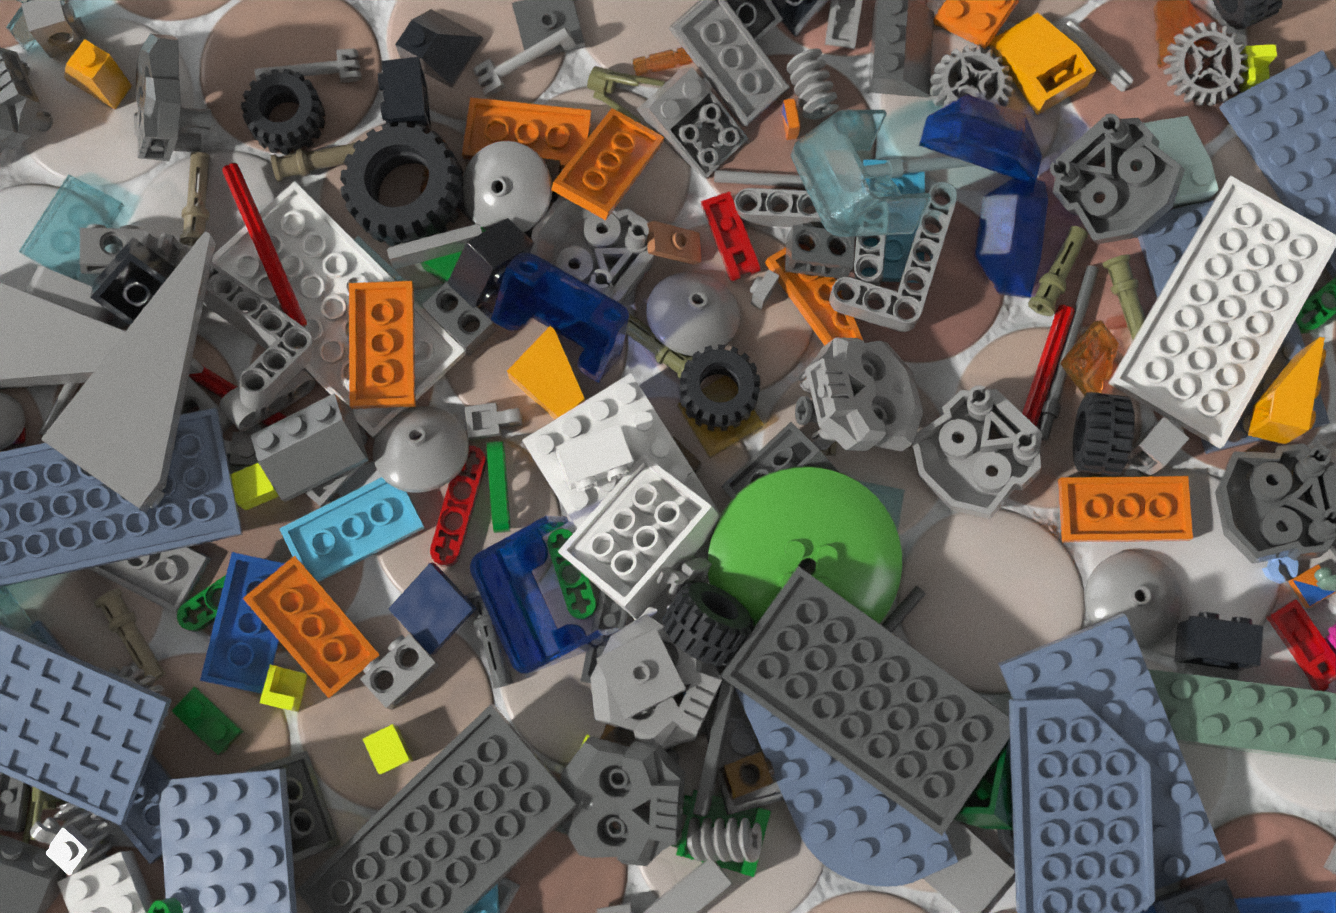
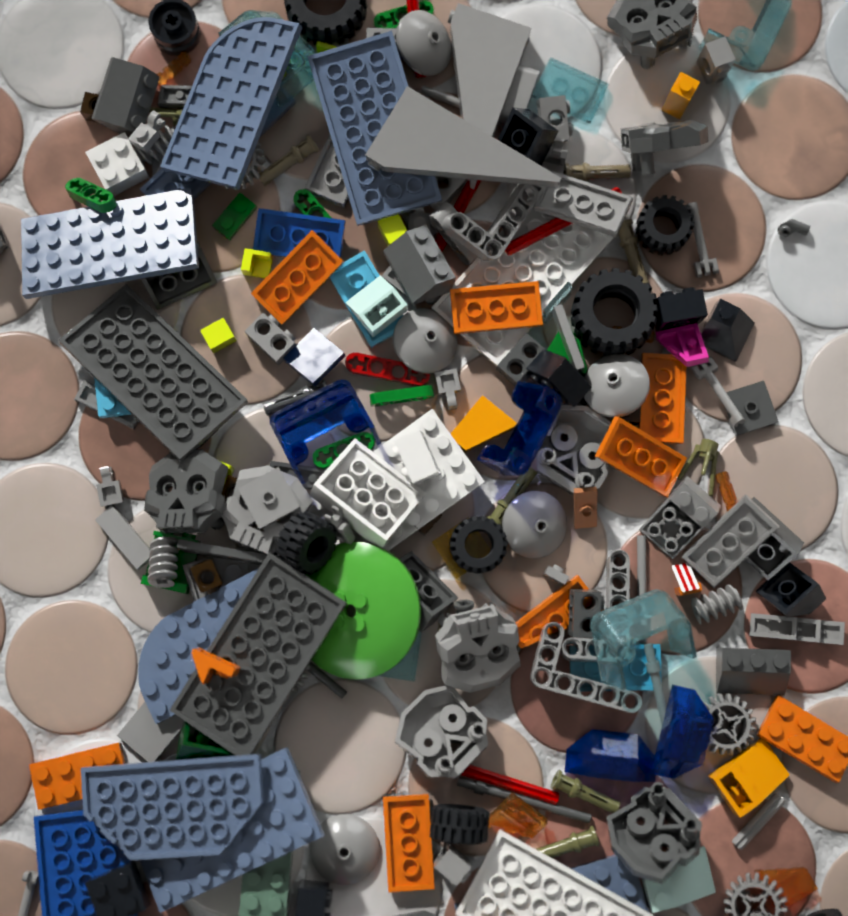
camera: 85 degrees right, 5 degrees up
(246, 210) = (585, 205): none -> light grey tile
(364, 510) = (377, 305): none -> light aqua slope
(455, 97) = (684, 344): none -> dark pink wing
(730, 235) = (595, 548): red plate -> none
(774, 120) = (685, 577): none -> sticker
(875, 772) = (208, 662): none -> orange slope

